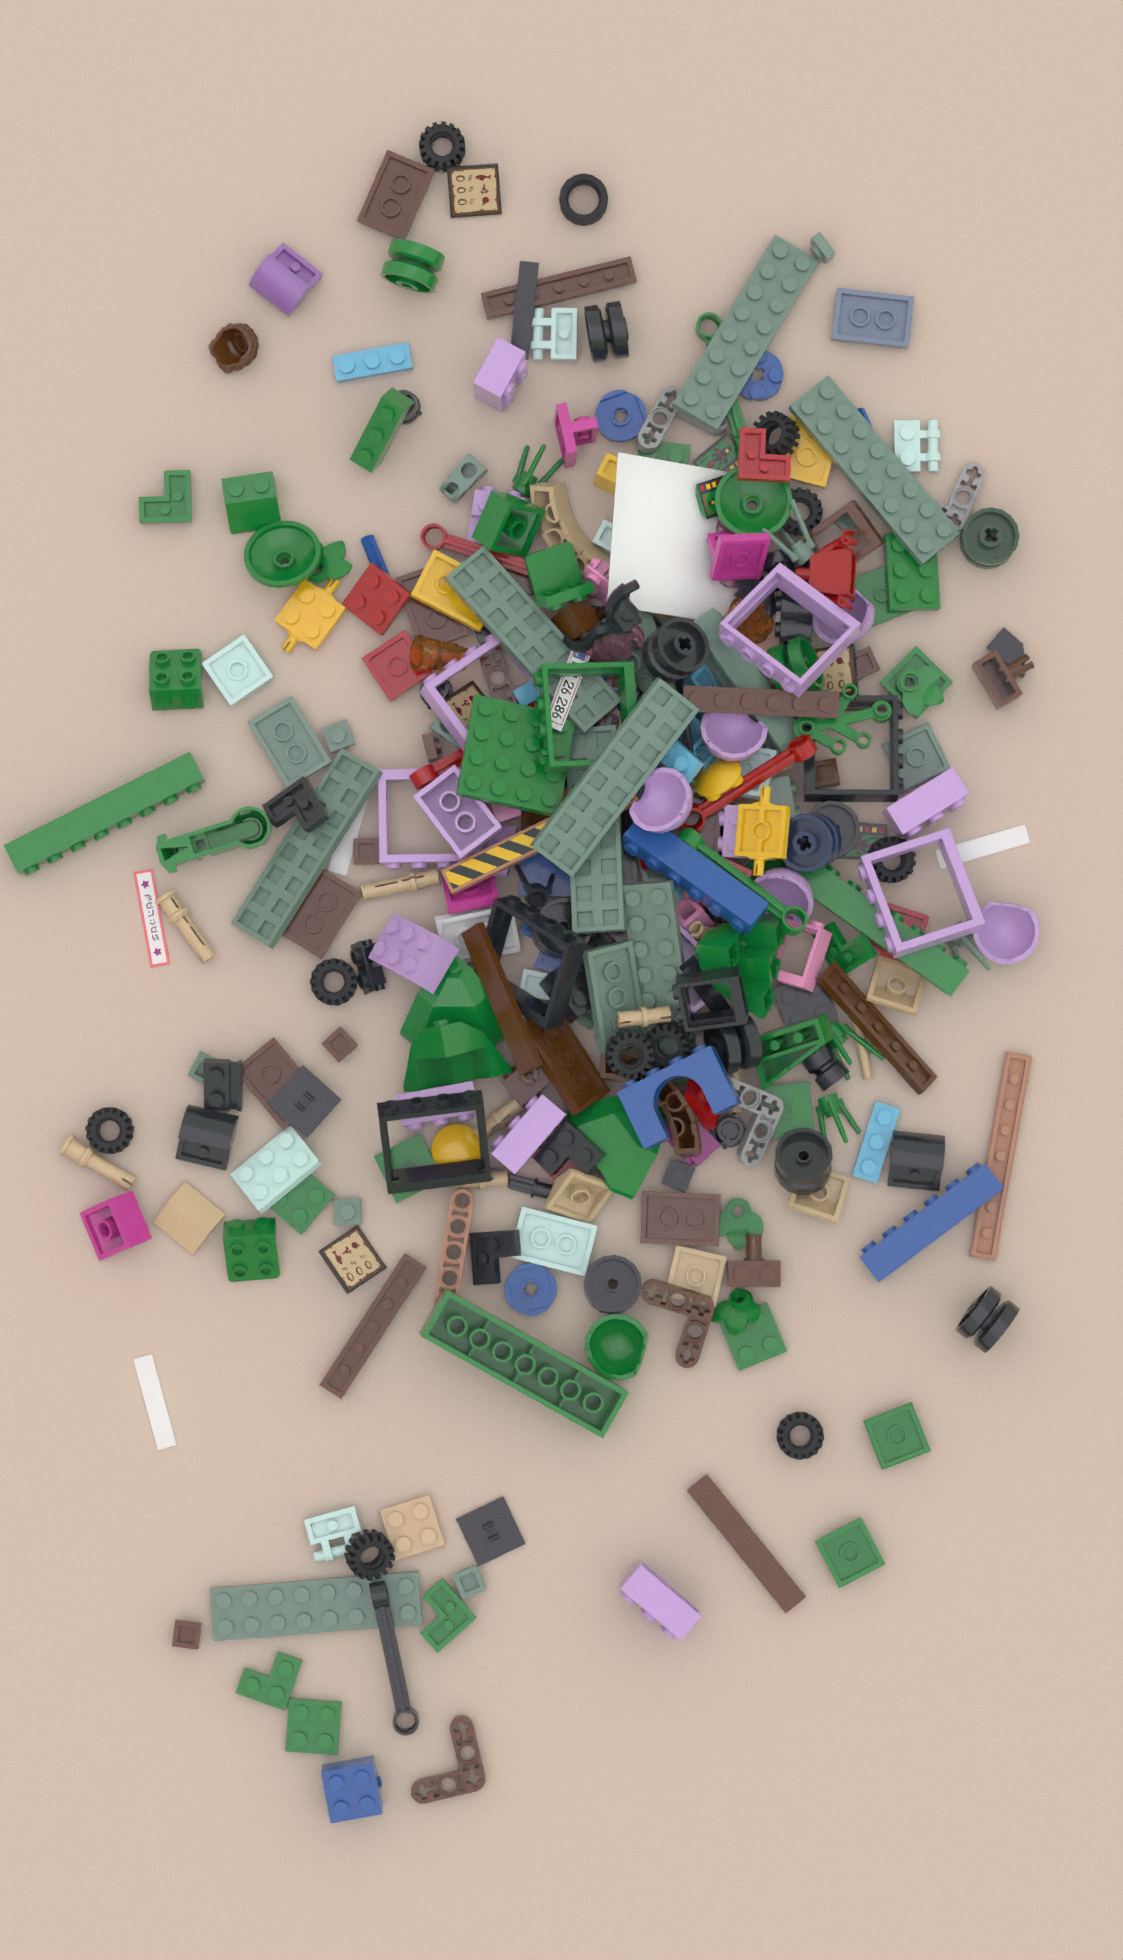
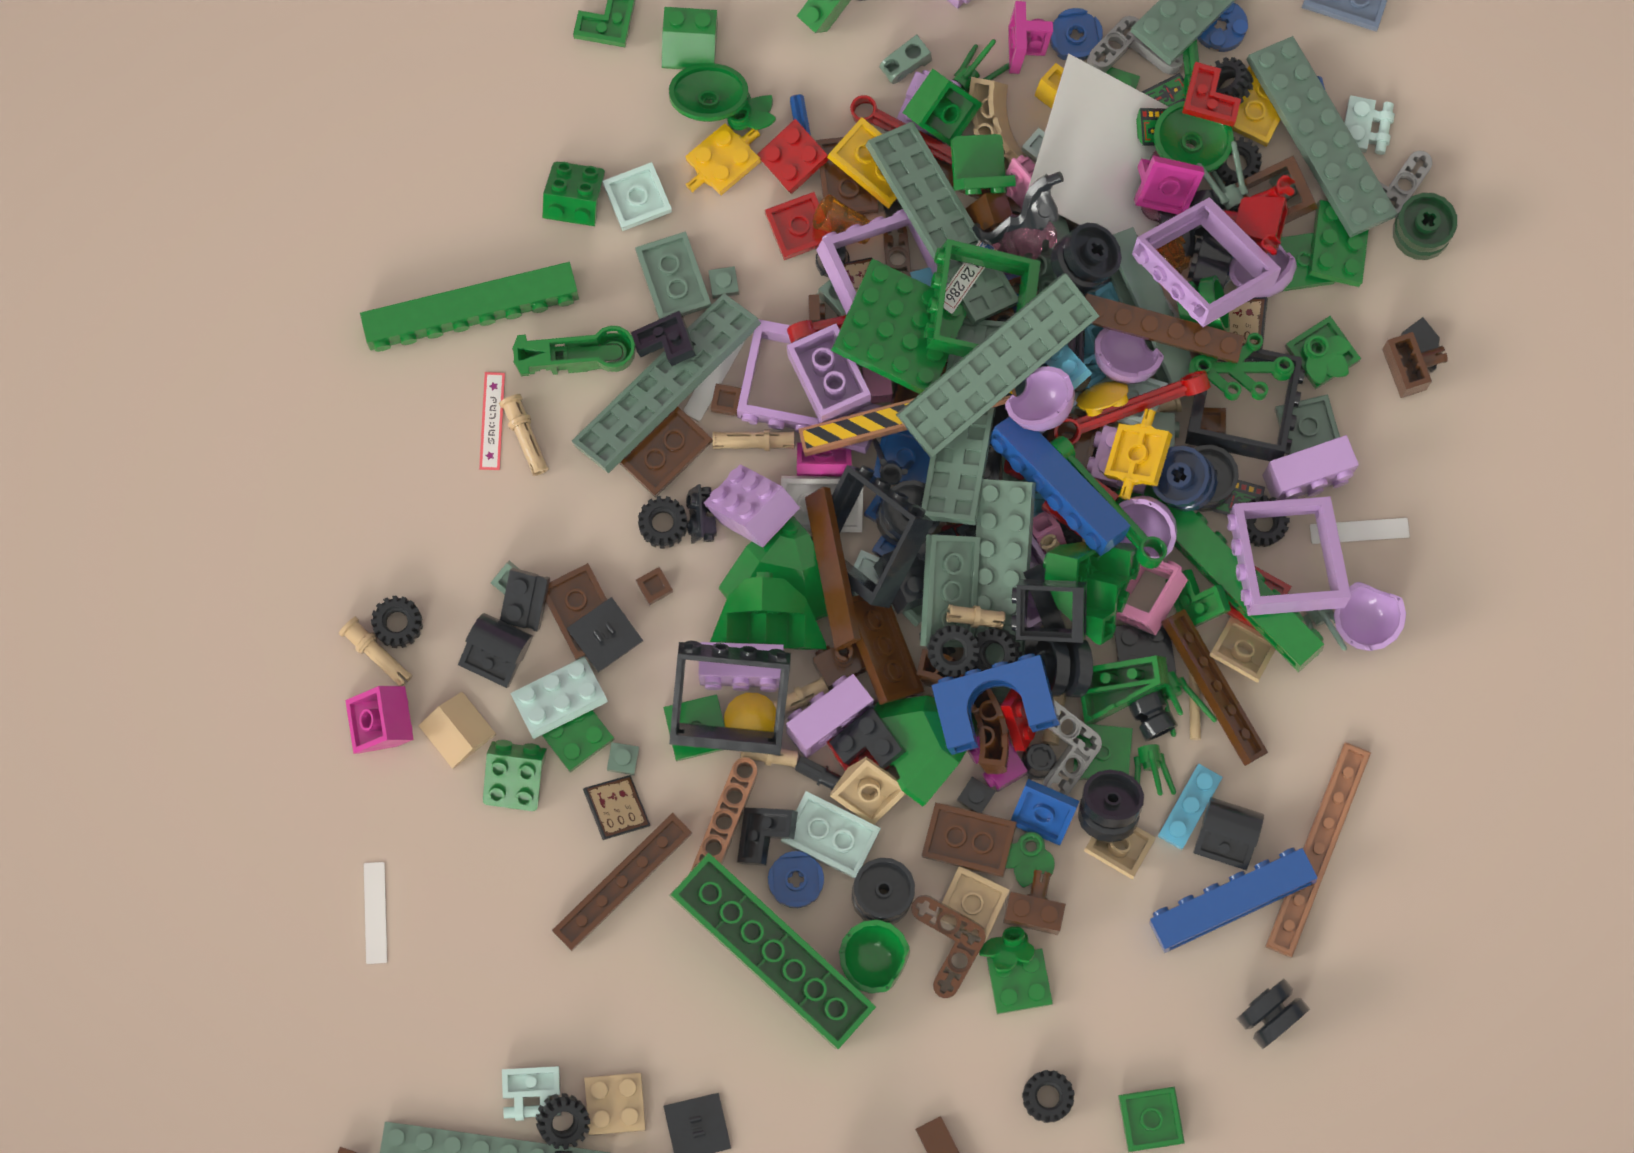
camera: 10 degrees right, 10 degrees down
(743, 1179) = (1044, 811): none -> blue plate
(866, 663) = (1275, 323): reddish brown plate -> none

